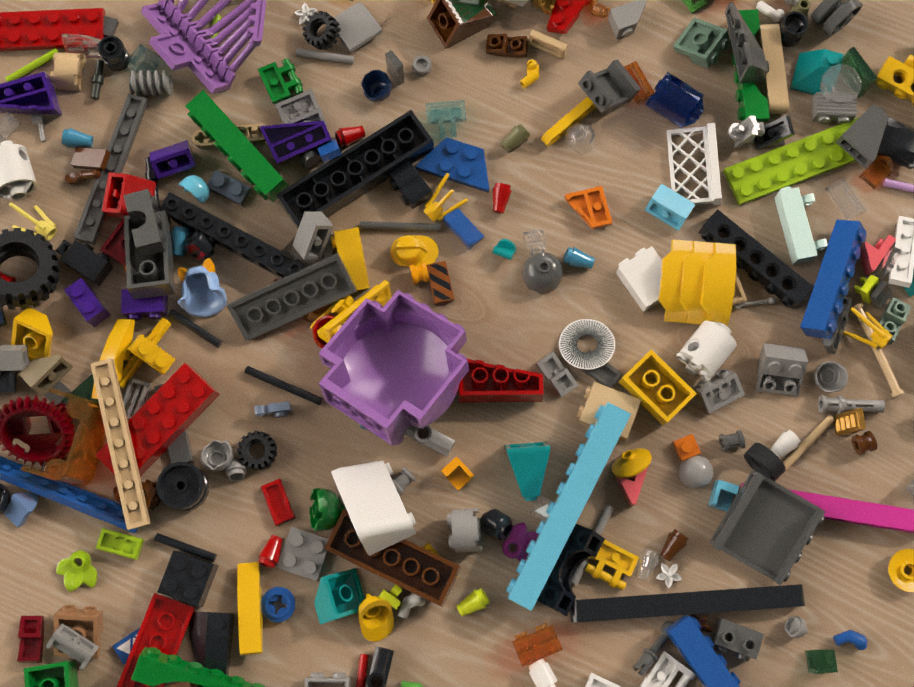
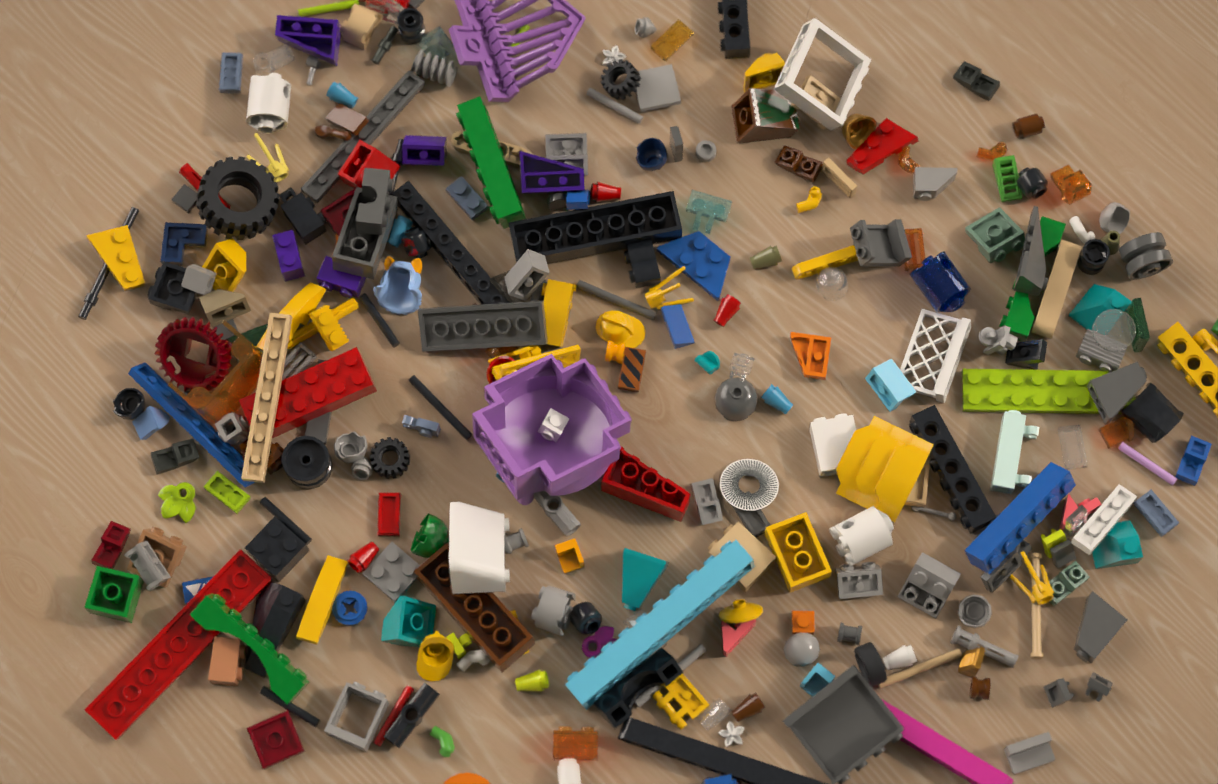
camera: 25 degrees right, 5 degrees down
(57, 530) = (175, 456): none -> pearl dark grey slope
(100, 483) = (228, 431): none -> light grey brick
(196, 187) = (436, 185): medium azure hair -> none
(275, 84) = (554, 113): green plate -> none
(393, 361) = (553, 425): none -> white bracket

